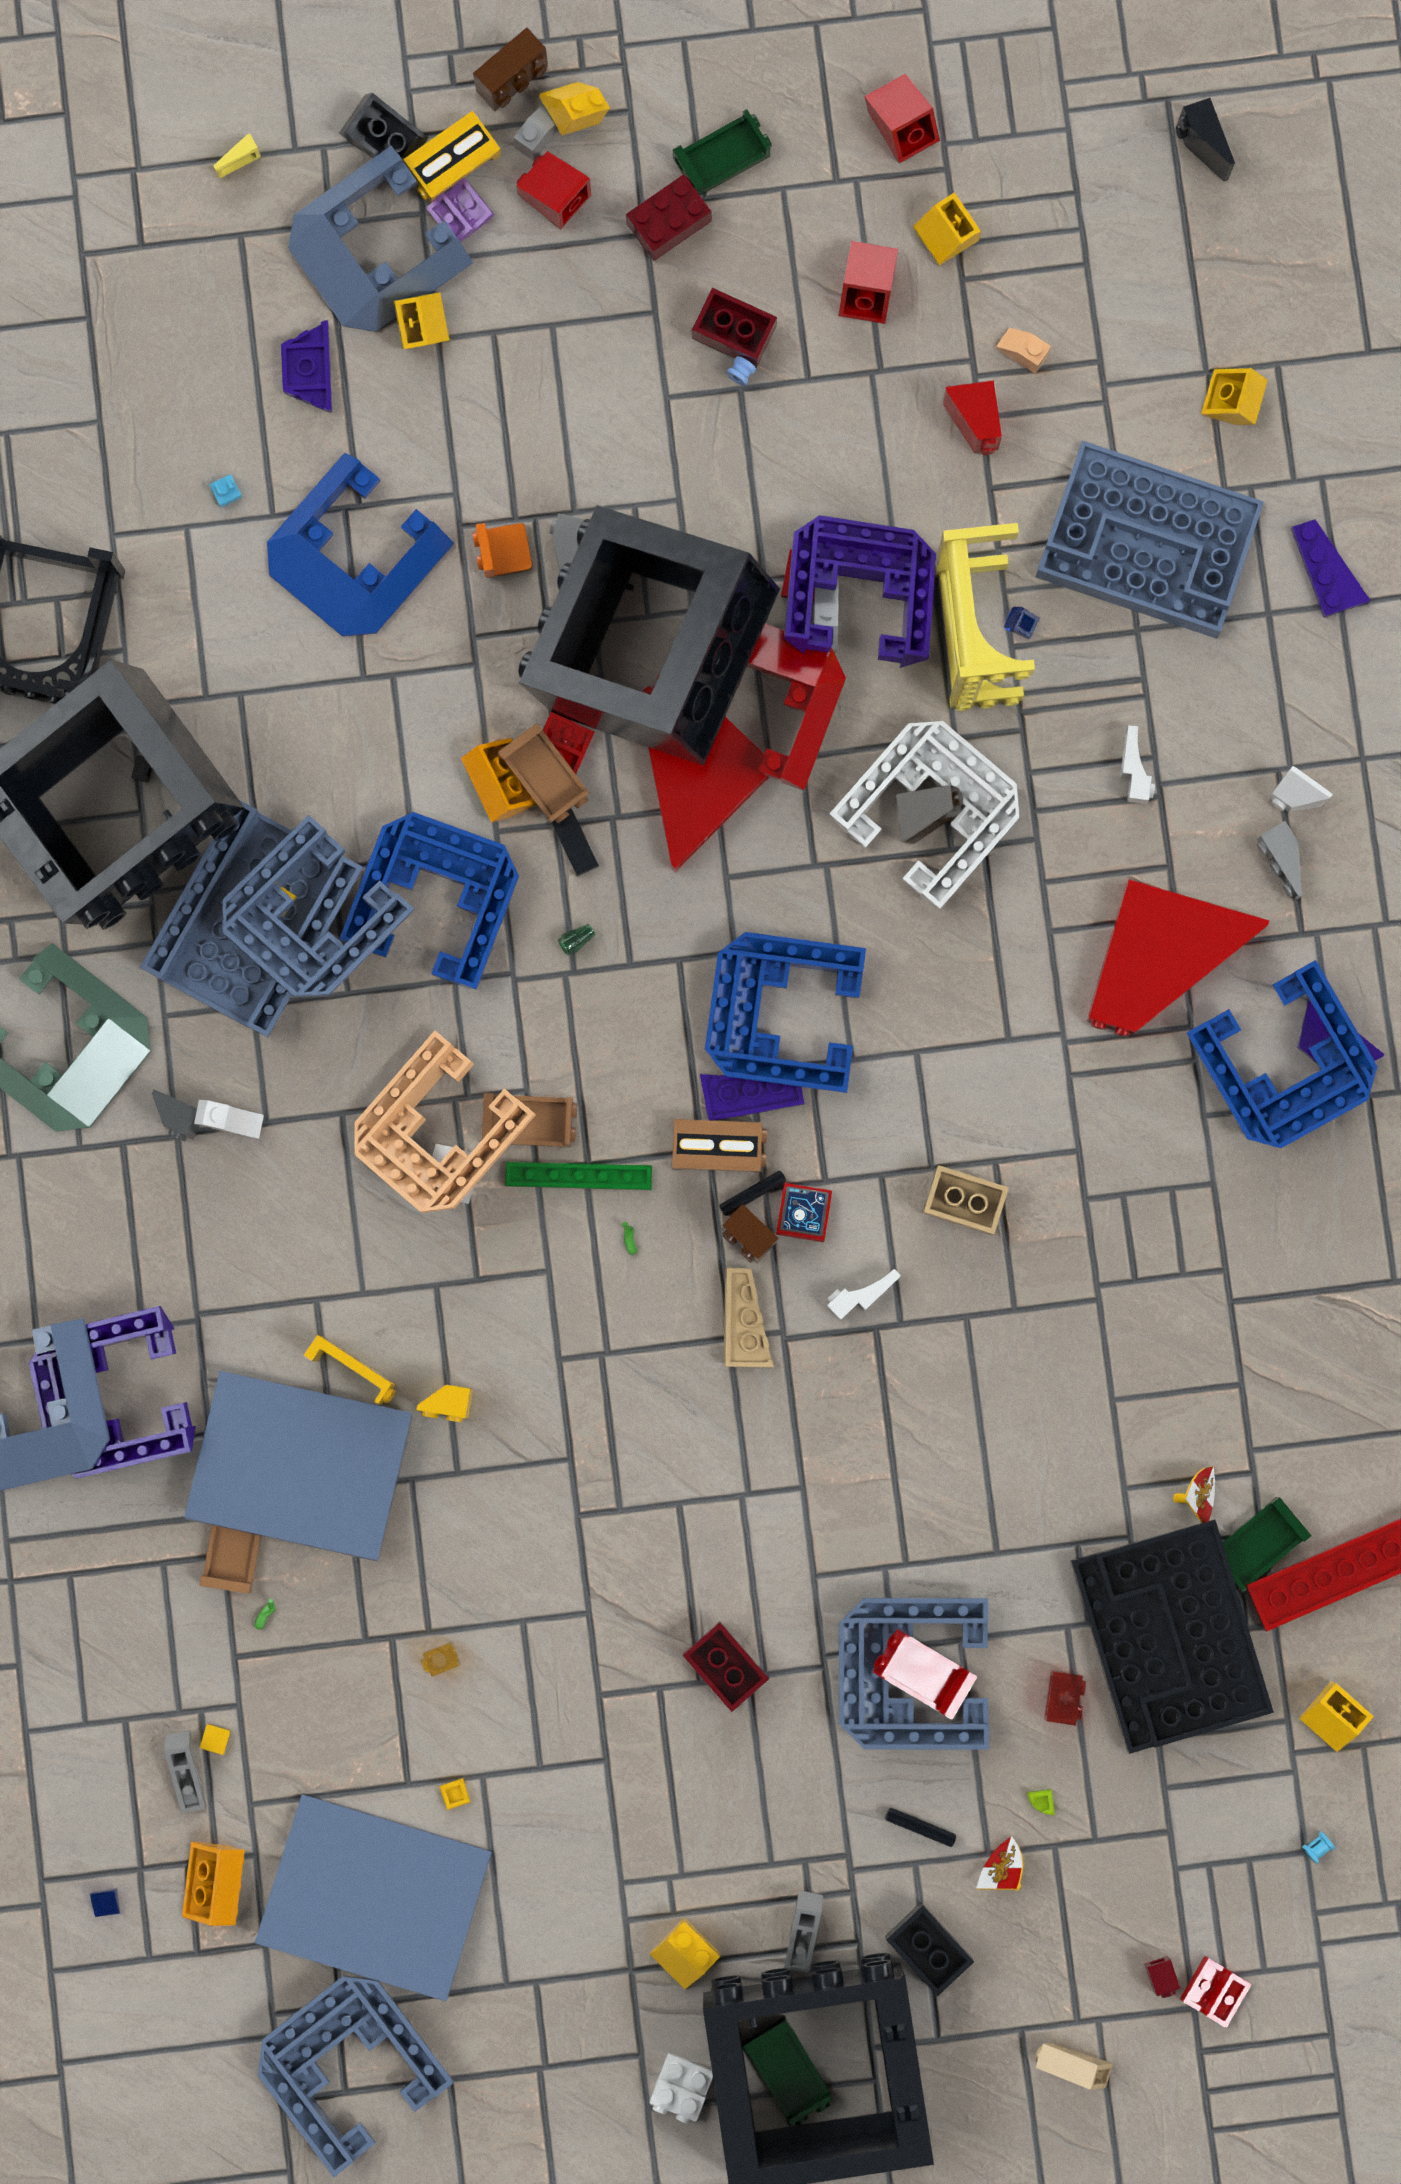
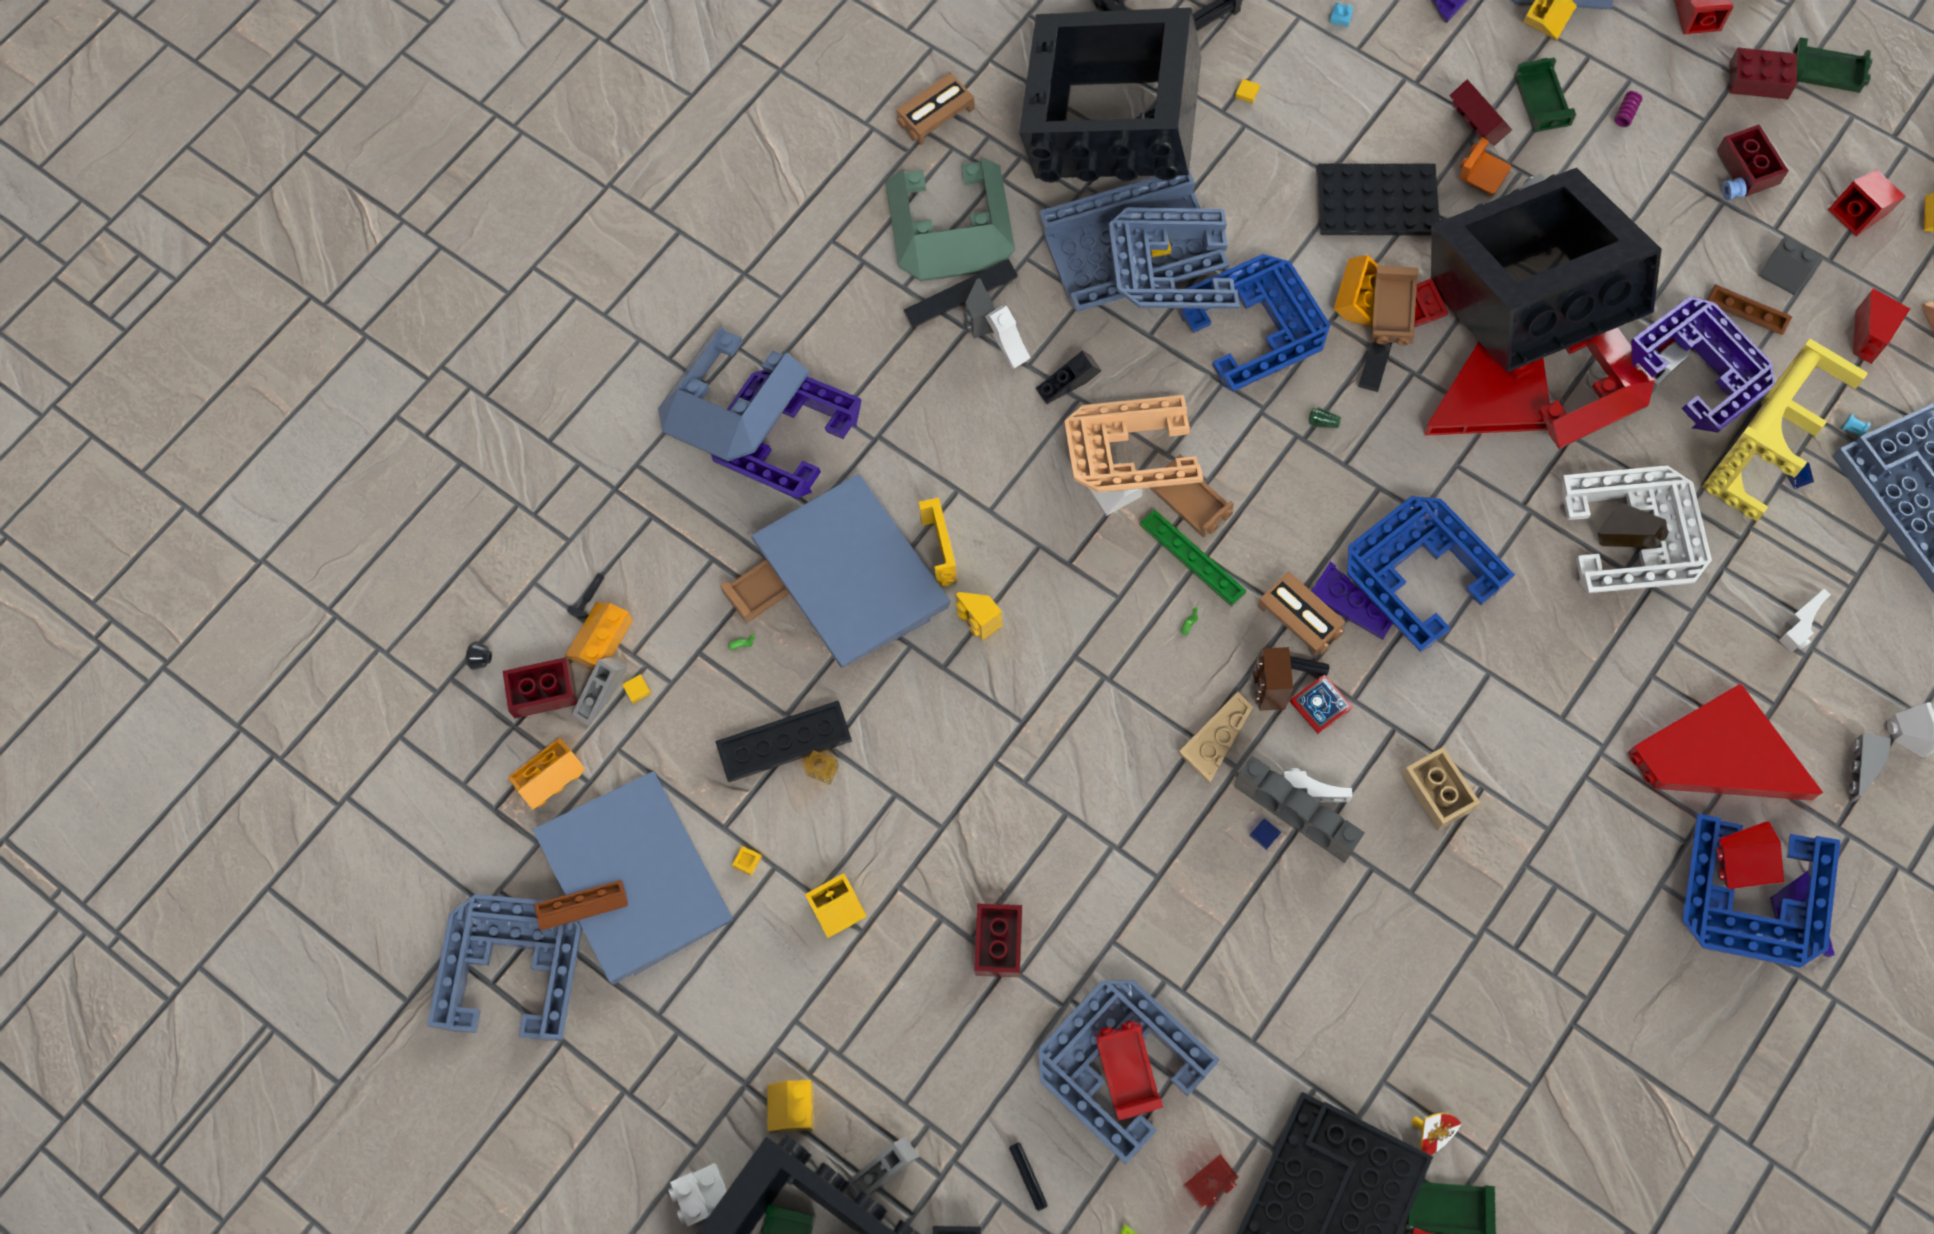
camera: 45 degrees right, 15 degrees down
(49, 1842) = (478, 655): none -> black cone
(89, 1701) = (586, 598): none -> black piece
(105, 1902) = (472, 724): clear blue slope -> none
(134, 1819) = (539, 687): none -> dark red brick
(135, 1725) = (599, 634): none -> light orange slope
(140, 1109) = (958, 294): none -> black tile
(211, 655) = (1247, 91): none -> yellow tile
(316, 1104) = (1069, 377): none -> black slope
(323, 587) = (1374, 134): blue slope -> none
(359, 1964) = (580, 905): none -> dark orange slope
(387, 1666) = (783, 741): none -> black plate
(431, 665) = (1377, 199): none -> black plate
(450, 496) = (1479, 113): none -> dark red brick
(488, 417) = (1543, 95): none -> dark green panel
(567, 1763) = (835, 905): none -> yellow slope
(578, 365) = (1628, 109): none -> magenta piece
(851, 488) = (1749, 309): none -> dark orange slope
(852, 412) = (1789, 264): none -> dark grey slope
(857, 1369) = (1265, 834): none -> clear blue tile
(868, 1329) = (1298, 809): none -> dark grey fence
(1033, 532) = (1855, 426): none -> medium azure bush
(1256, 1036) = (1750, 857): none -> red slope

